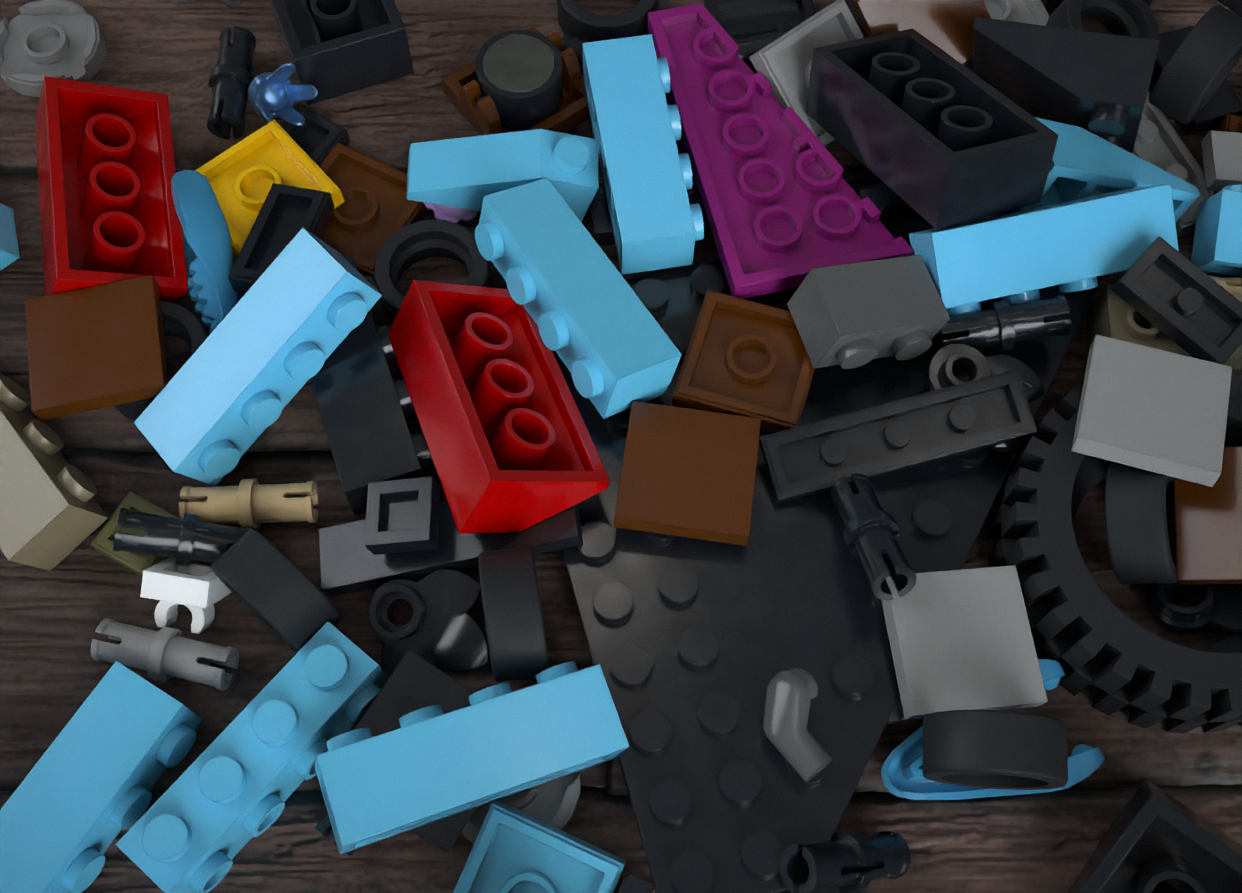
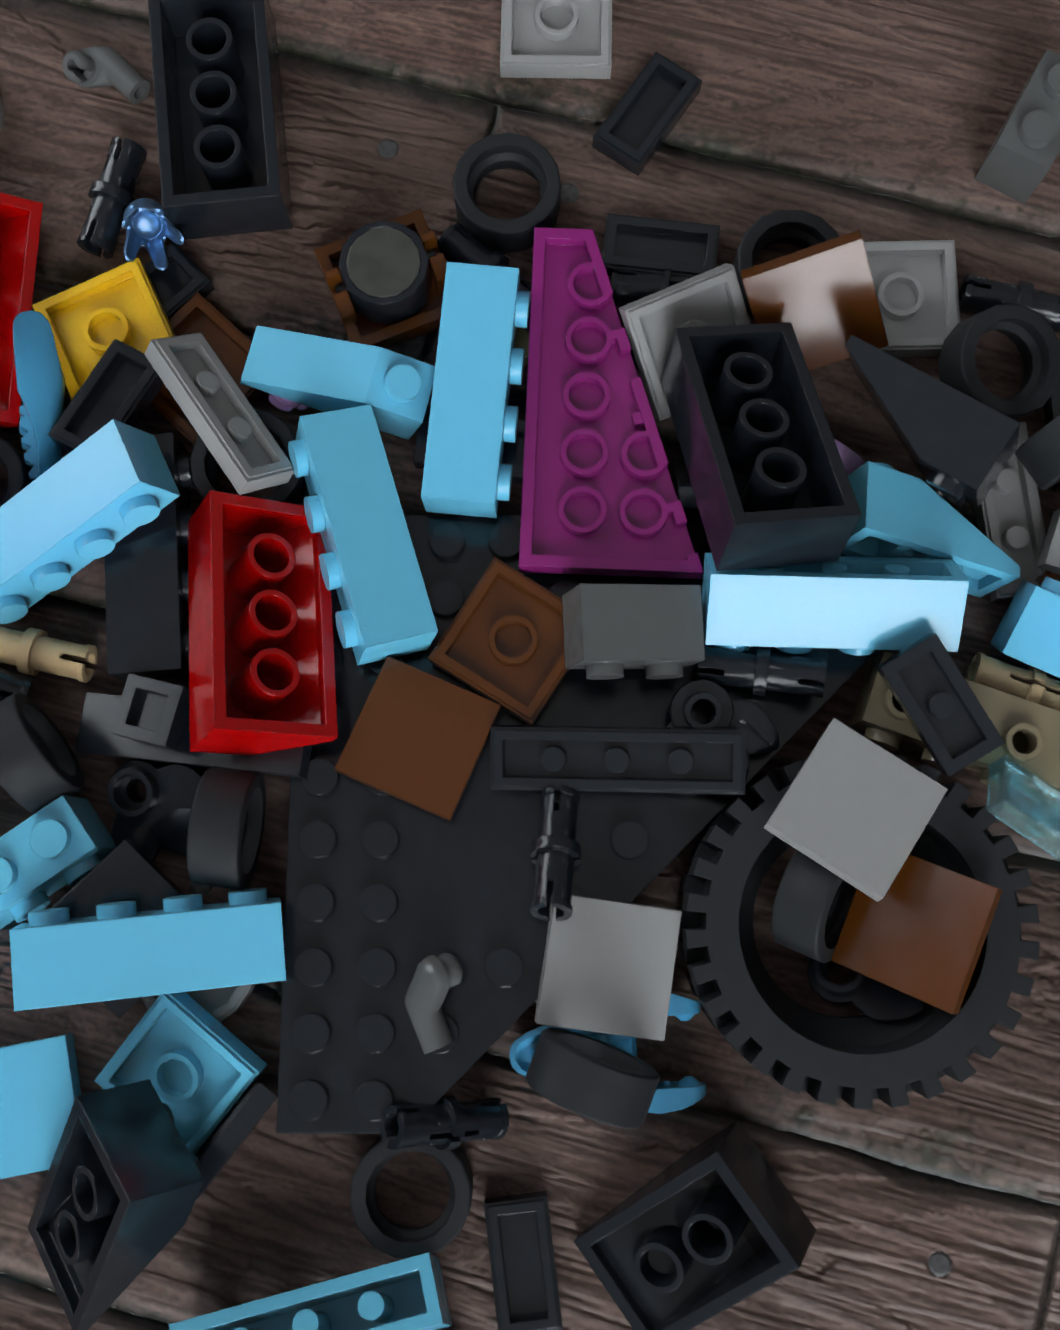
camera: 20 degrees right, 15 degrees up
(398, 220) = (219, 412): none -> light grey tile

